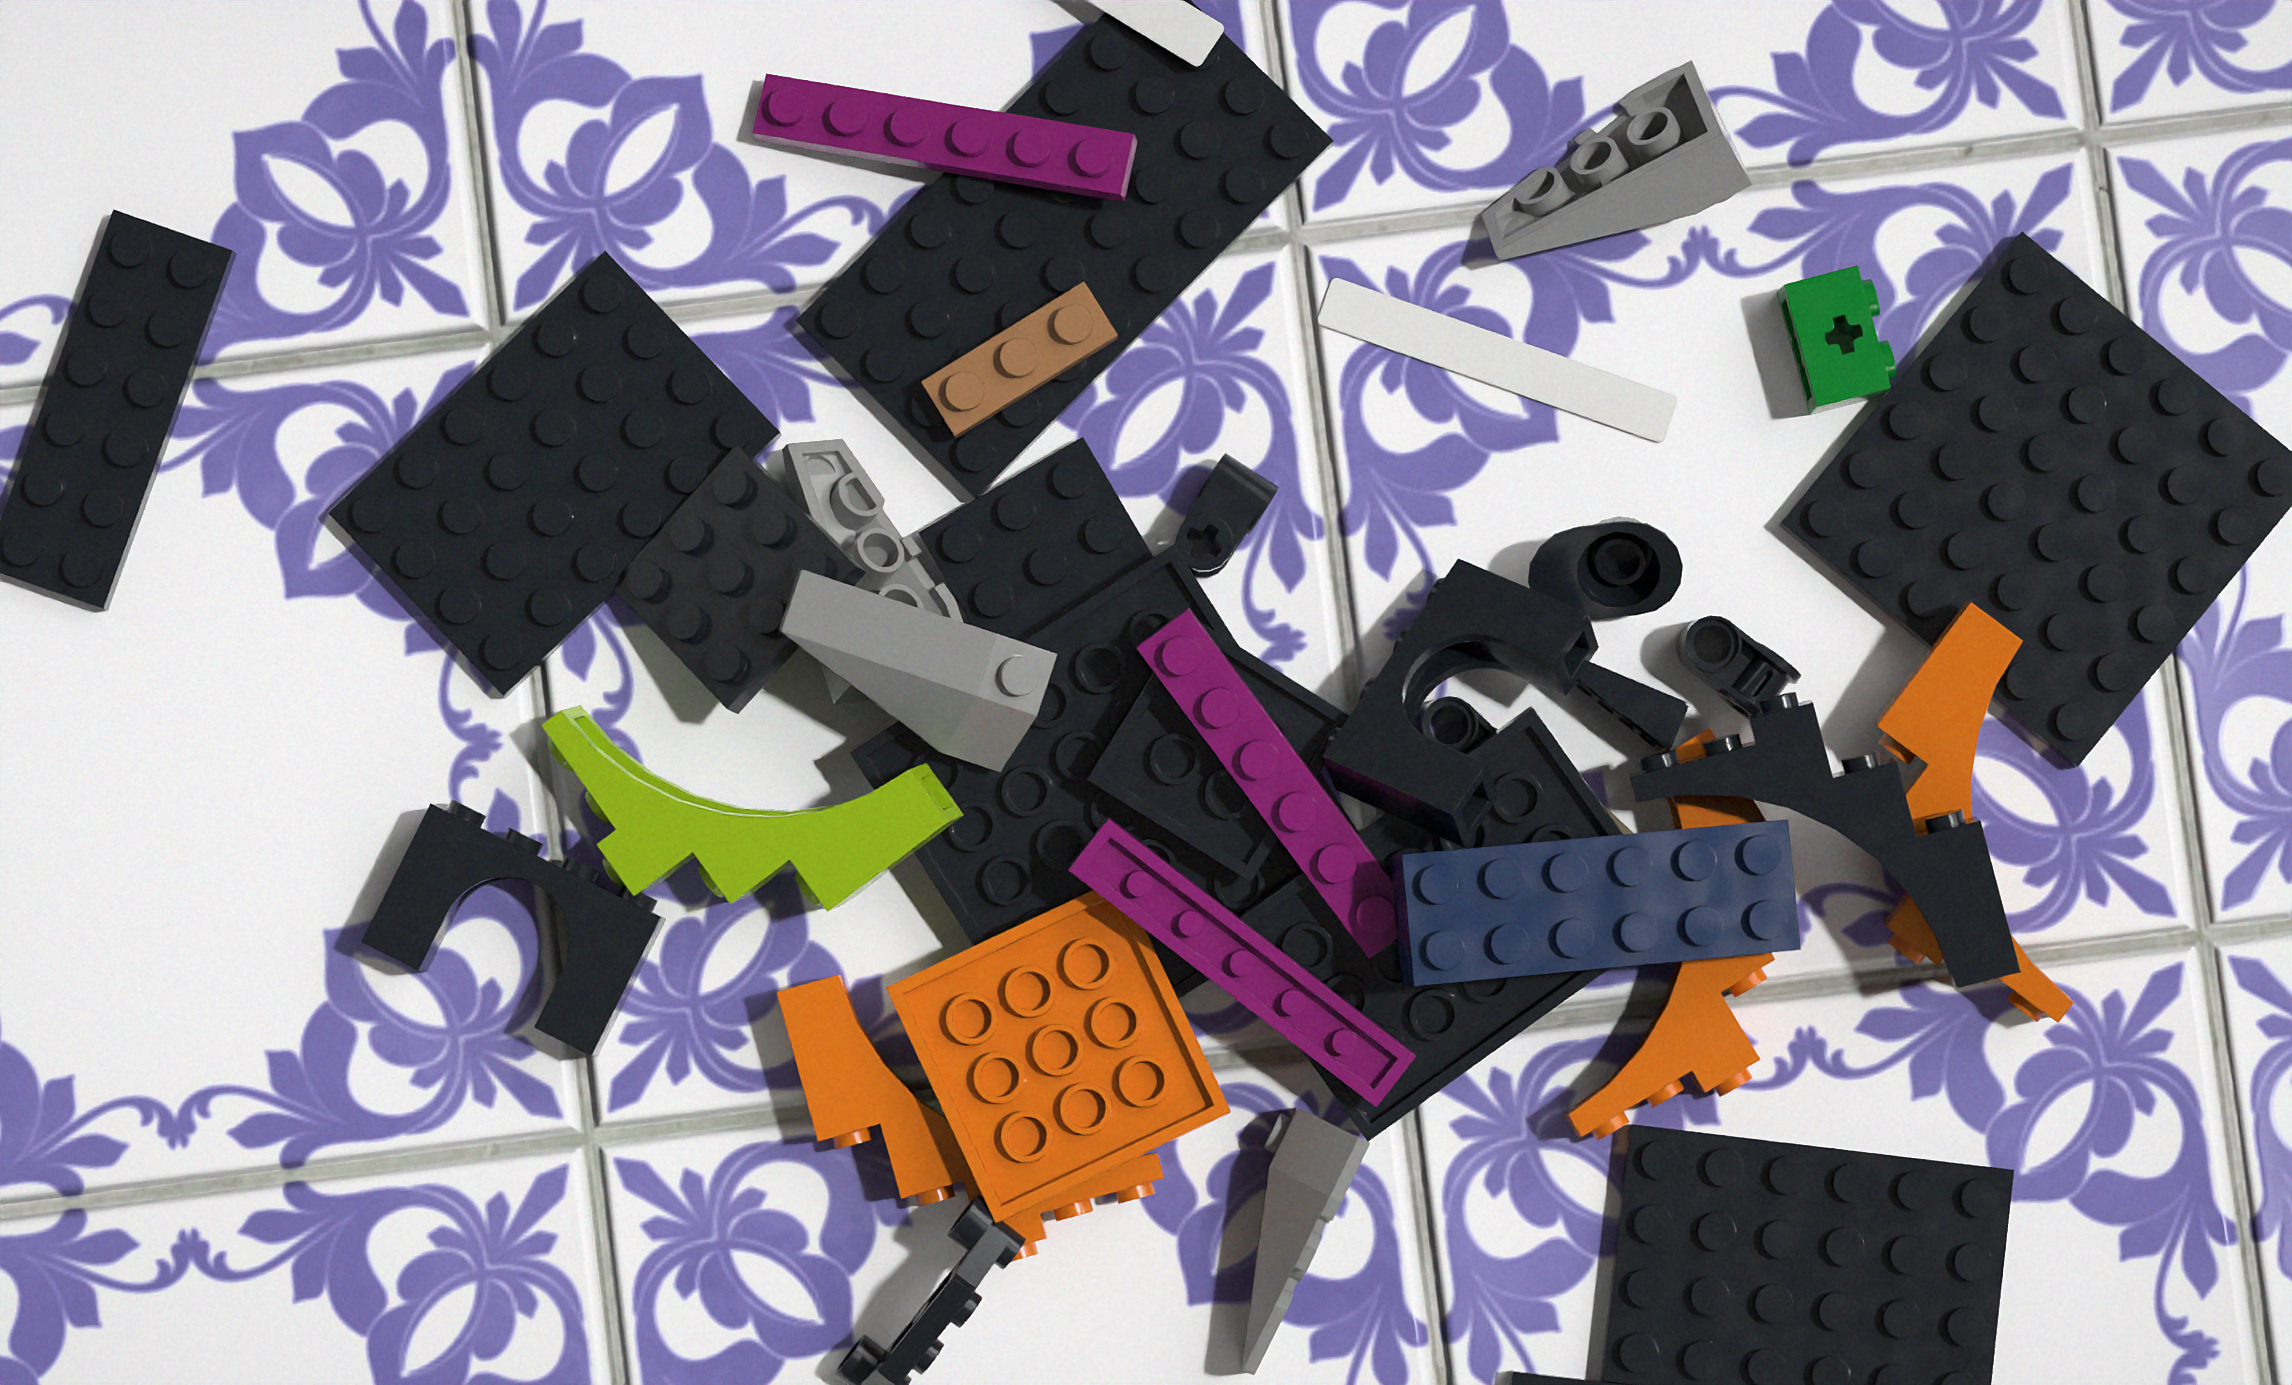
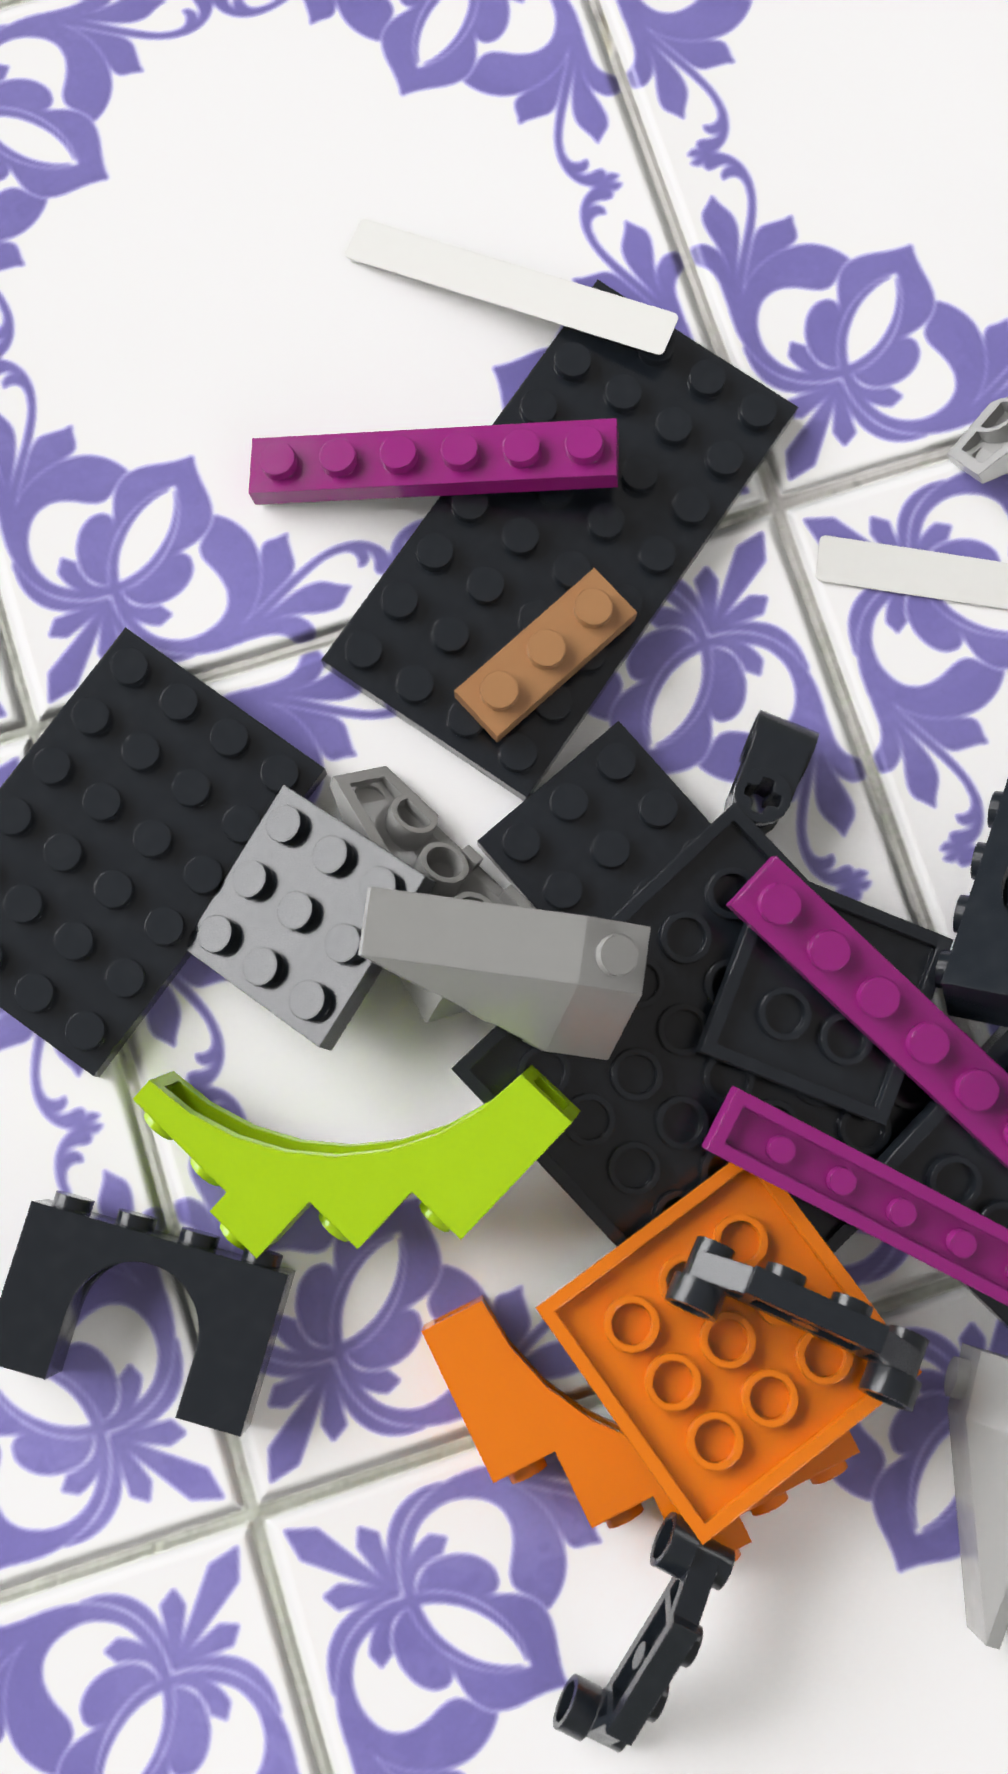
camera: 15 degrees left, 5 degrees down
(1157, 1045) = (780, 1291): none -> black plate

